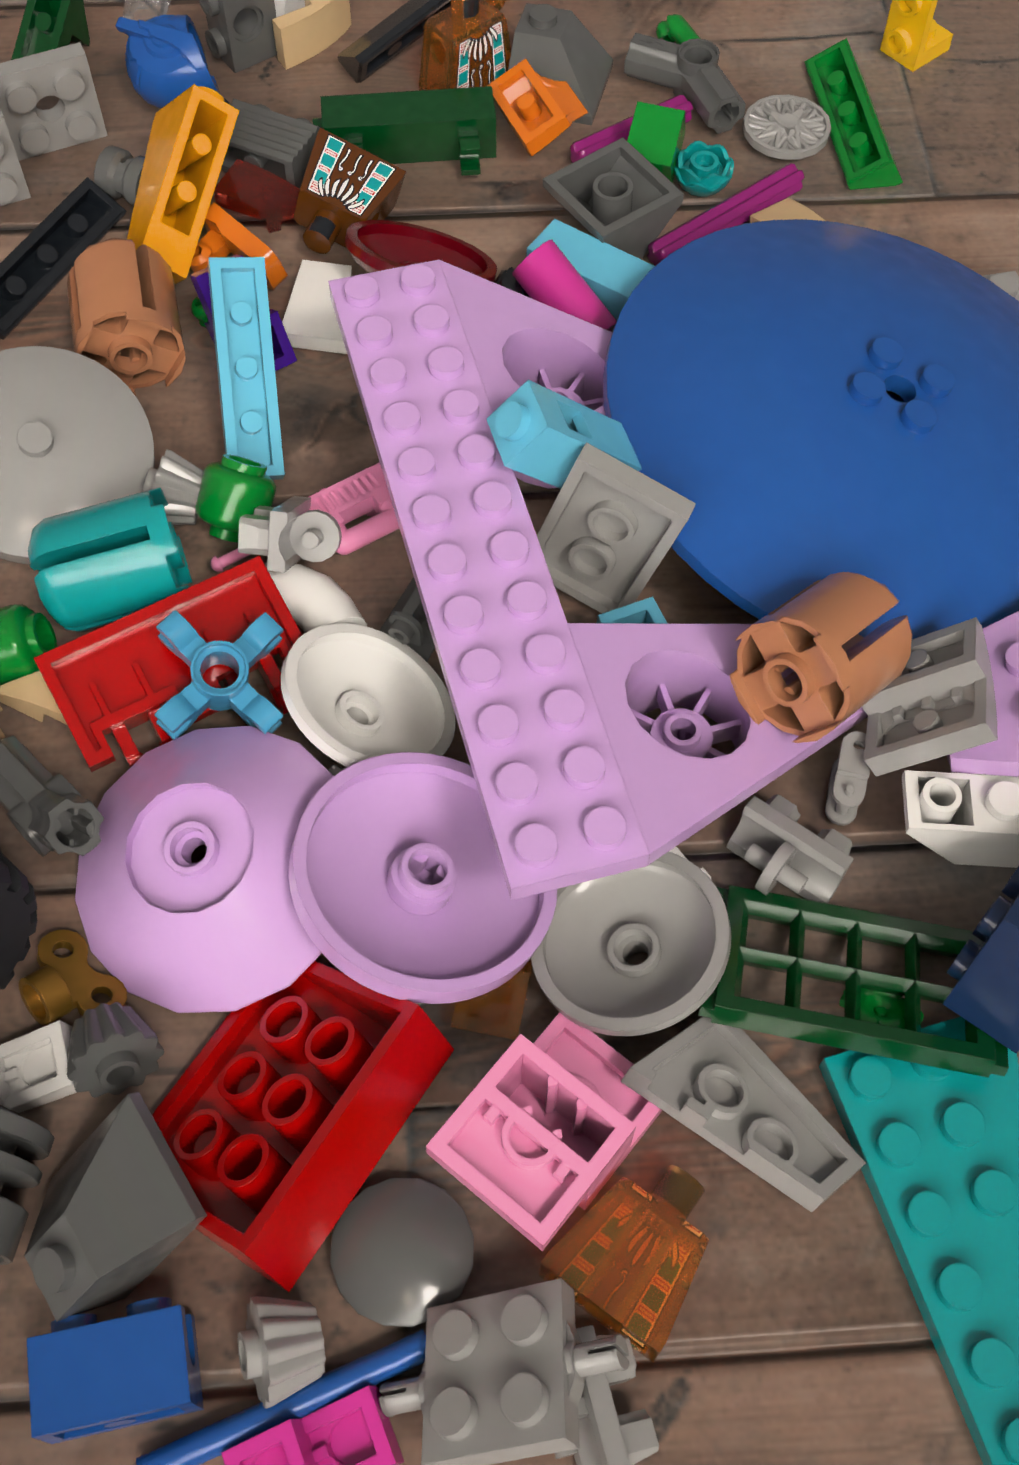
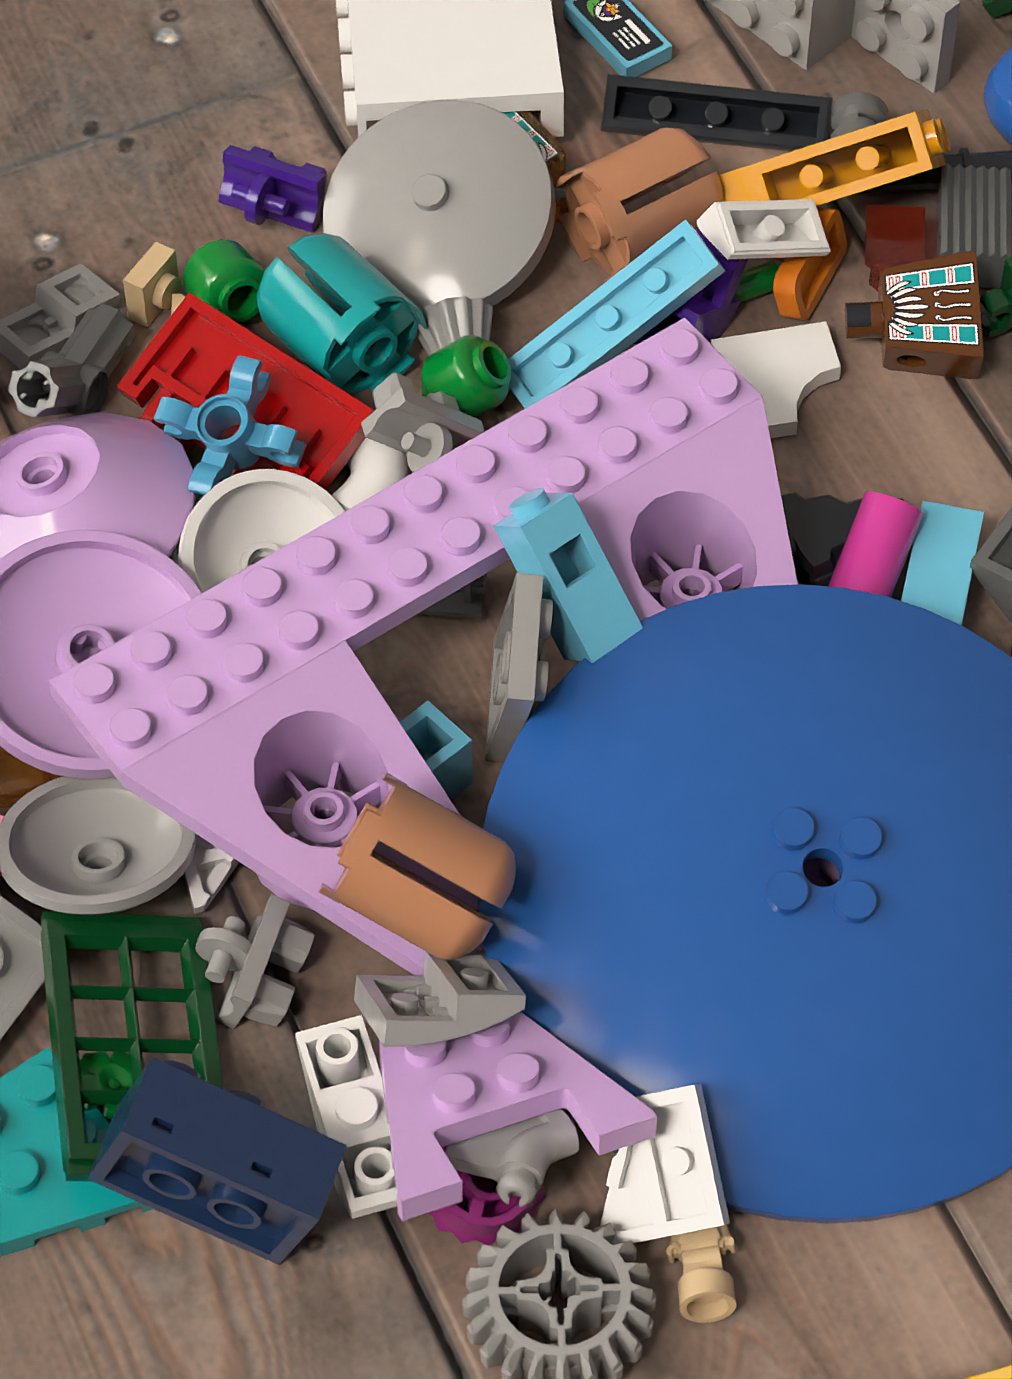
camera: 70 degrees right, 5 degrees down
(225, 232) = (765, 229): none -> white slope
(394, 244) = (863, 412): dark red dish -> none
(847, 780) = (337, 990): light grey piece -> none

